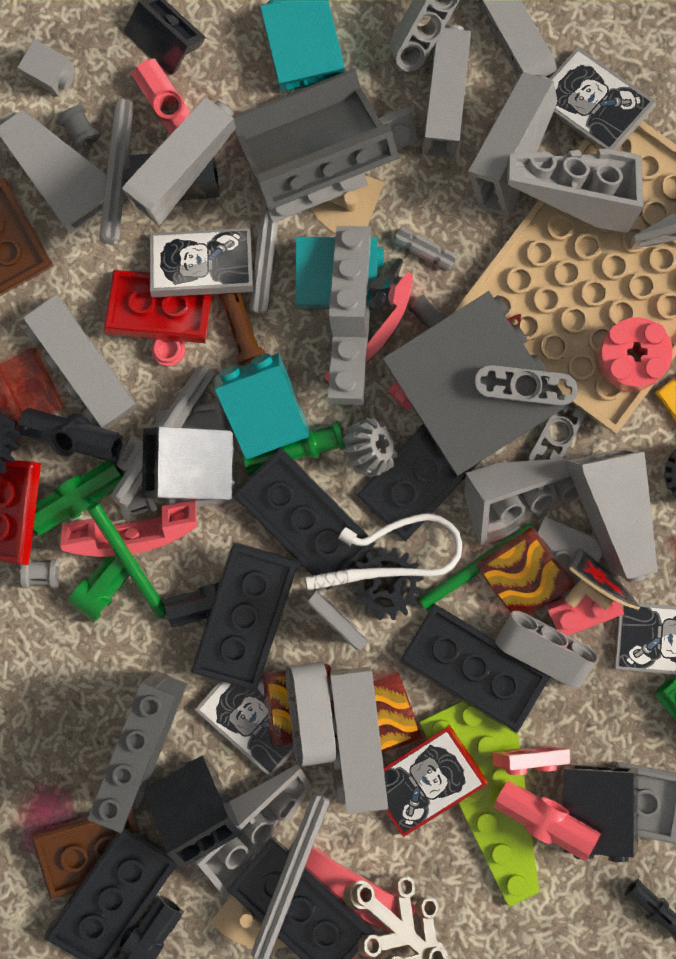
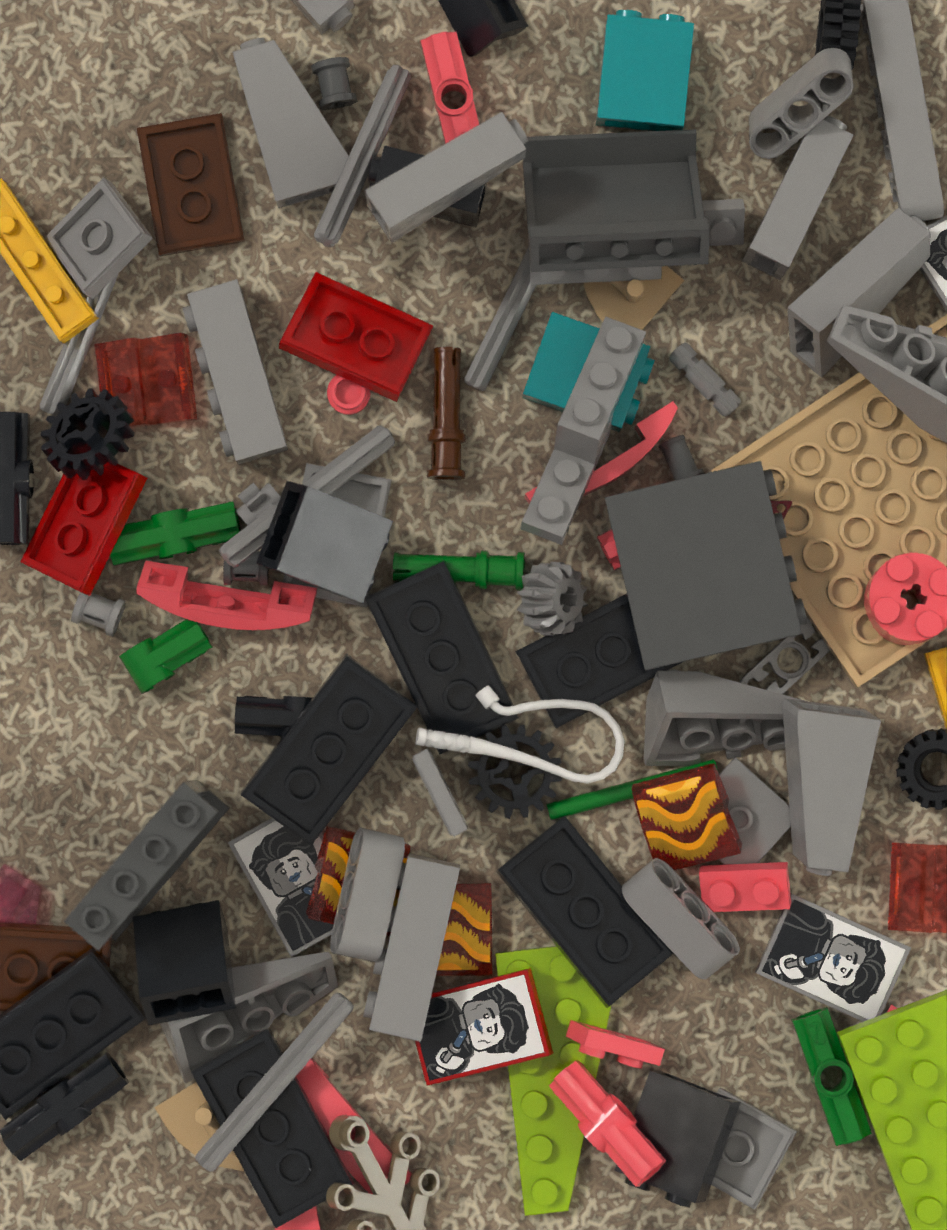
camera: 15 degrees right, 0 degrees up
(70, 435) = (195, 456): black piece -> none
(127, 559) = (211, 631): green bar -> none
(201, 262) = (425, 301): tile -> none
(261, 405) = (438, 502): teal brick -> none
(383, 288) = (636, 412): black piece -> none
(553, 380) = (789, 615): light grey beam -> none
(597, 584) = (768, 860): shield -> none

